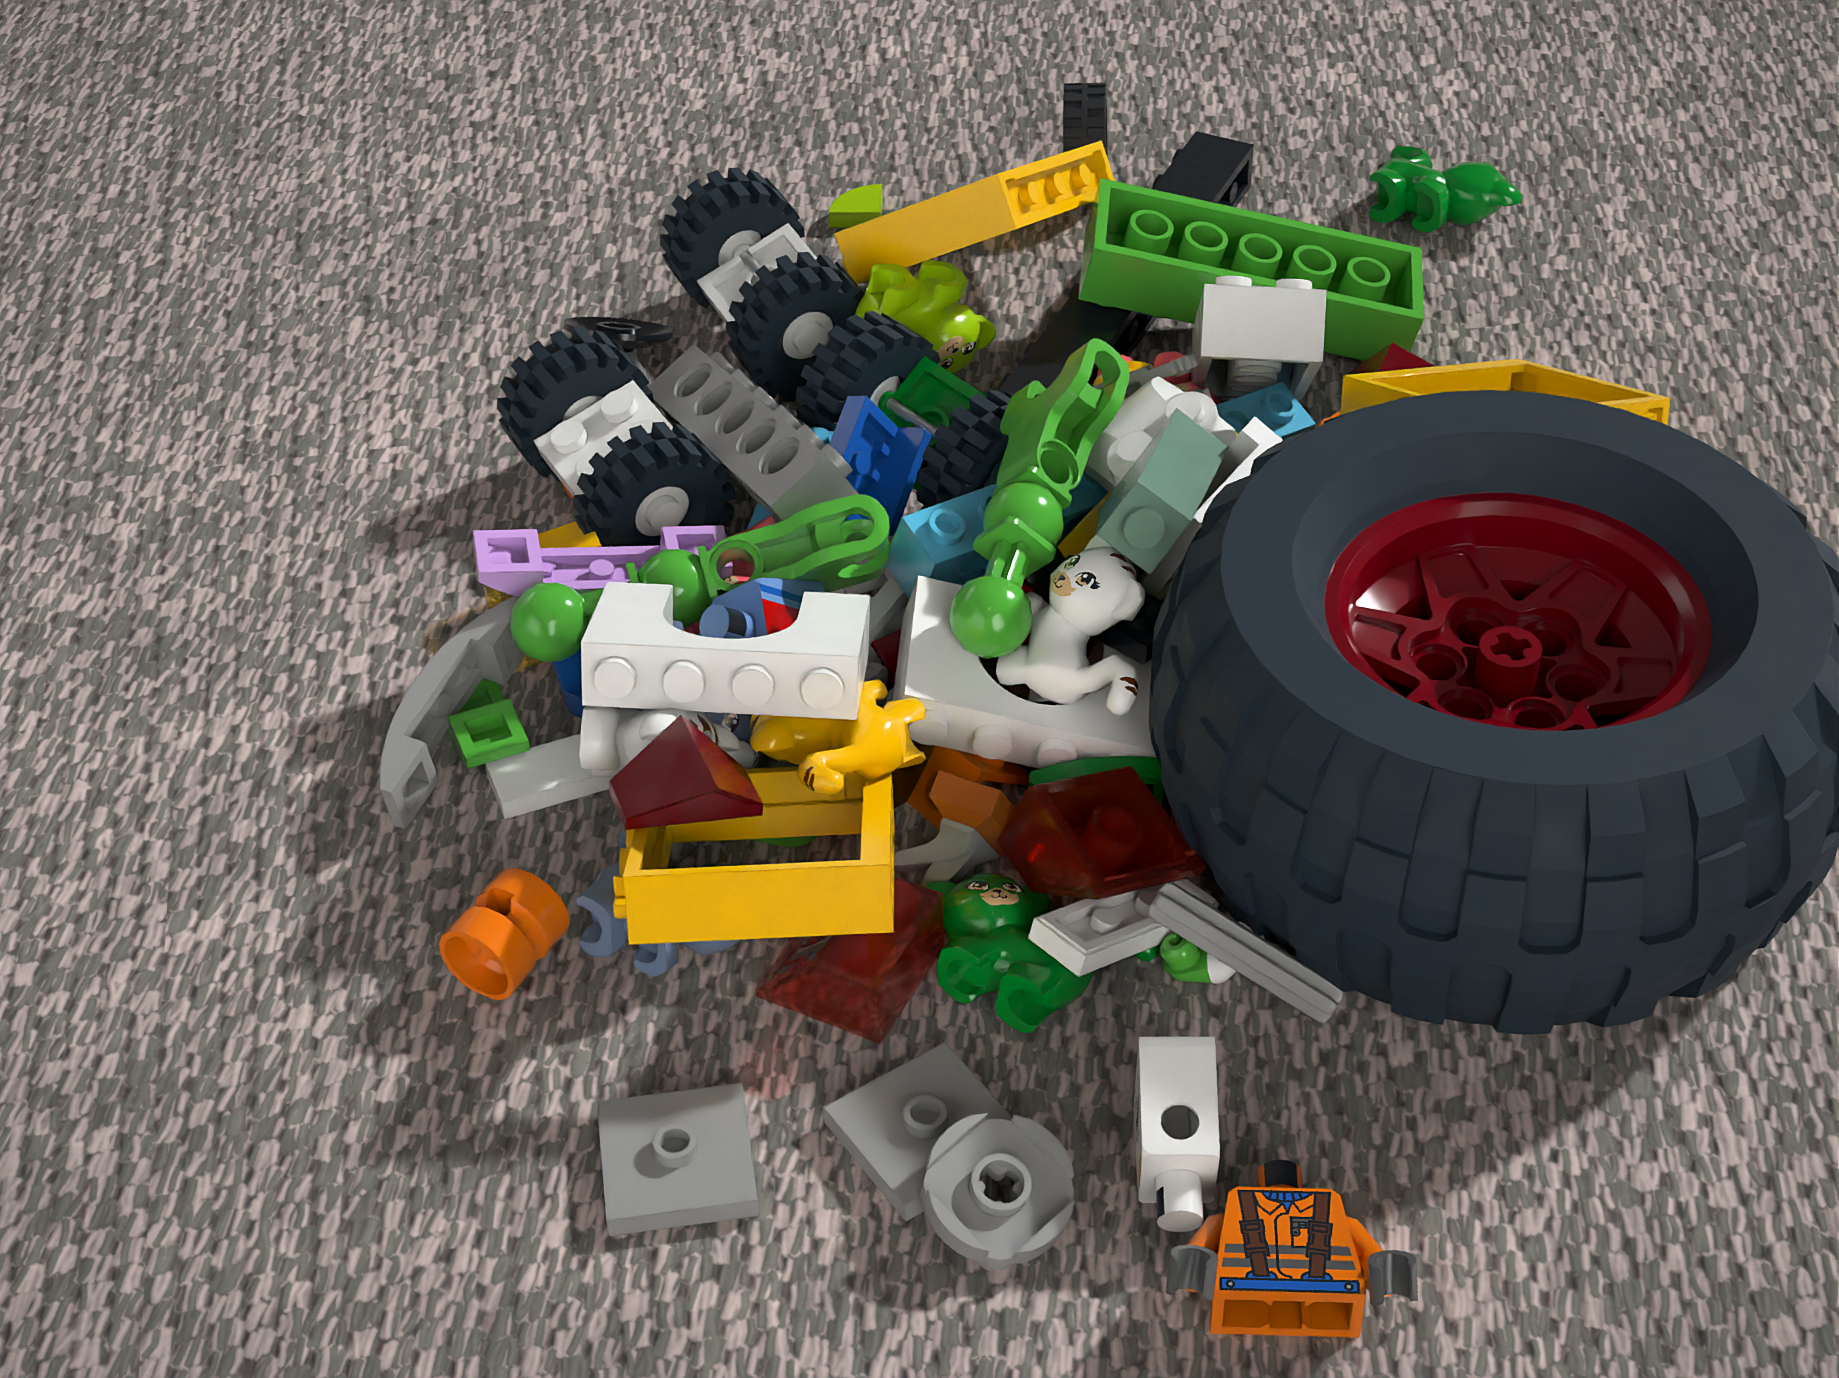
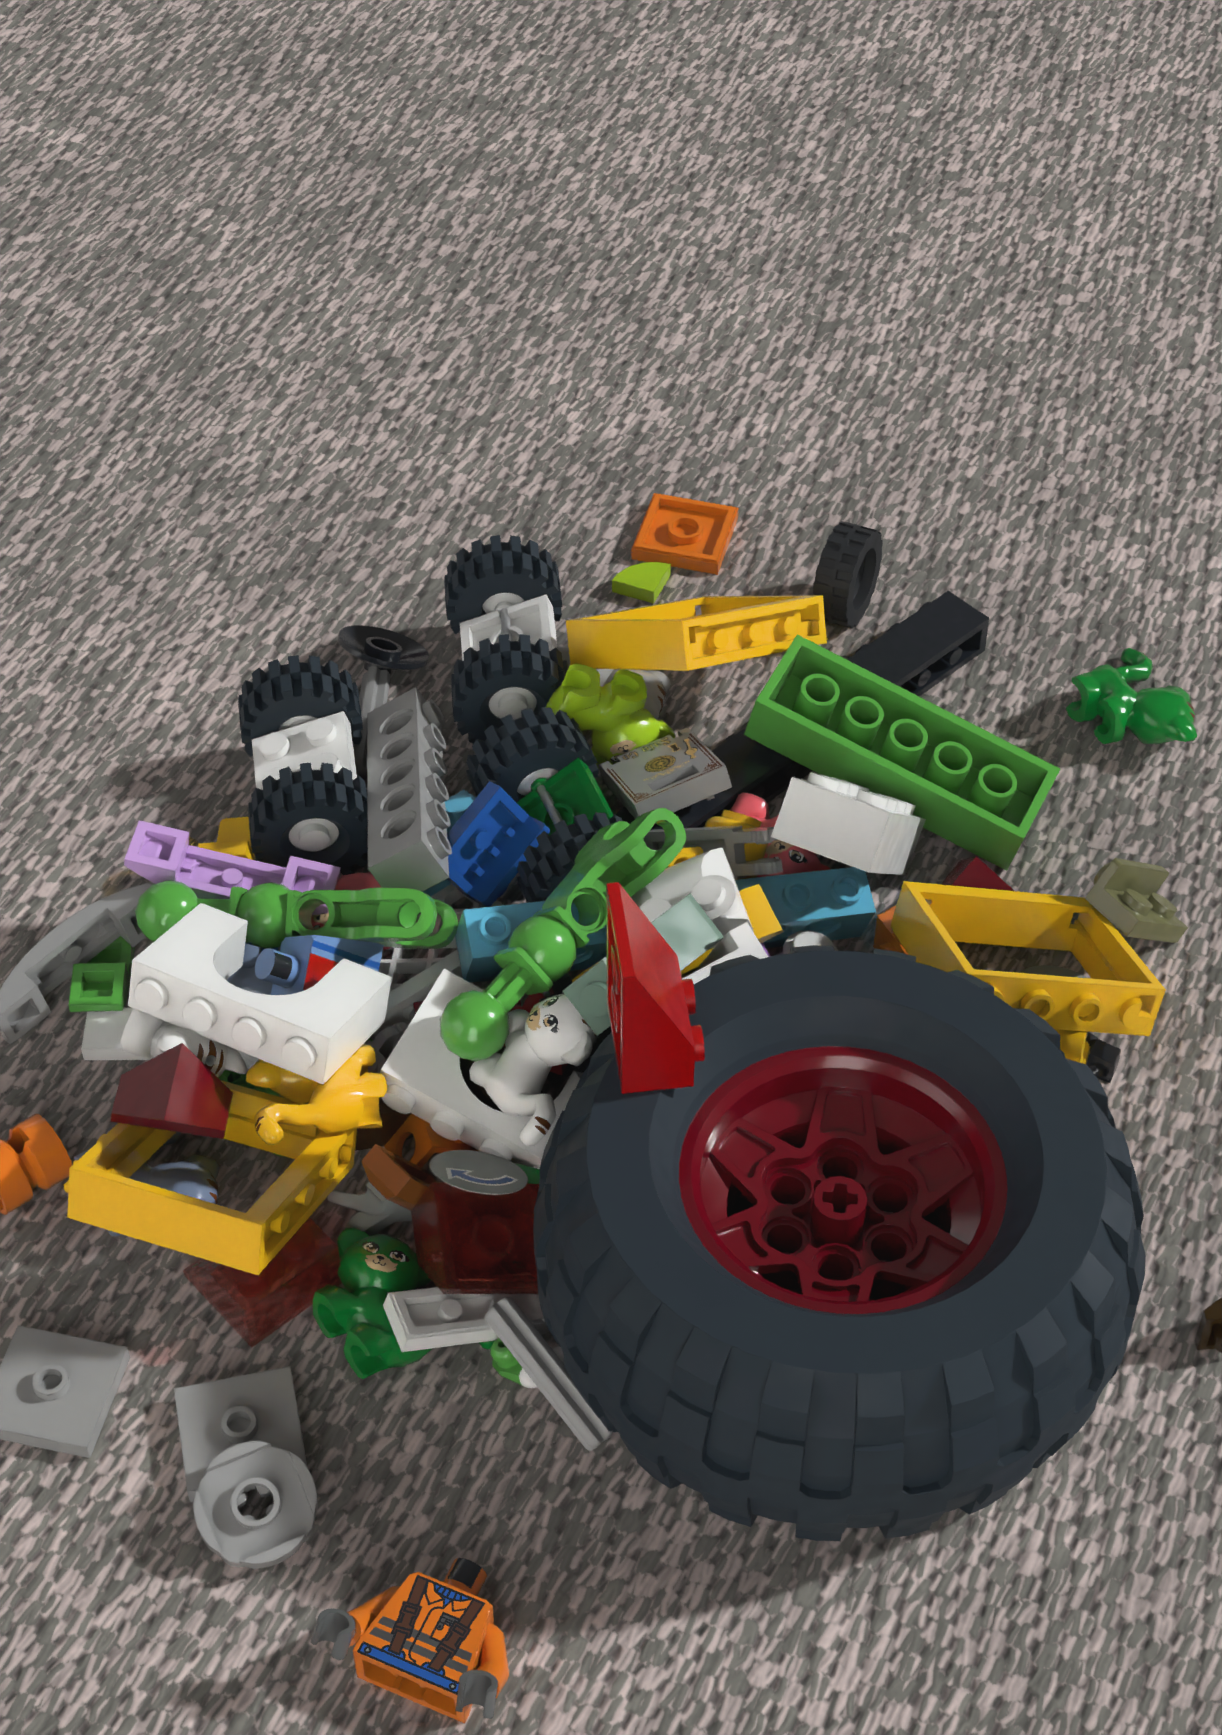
camera: 20 degrees right, 5 degrees up
(877, 154) = (685, 533): none -> orange tile
(1004, 349) = (661, 764): none -> light grey container
(1063, 769) = (478, 1172): none -> light grey sticker
(1176, 1128) = (404, 1506): white torso -> none
(1245, 475) = (648, 1002): none -> red slope
(1548, 342) = (1128, 898): none -> olive bracket

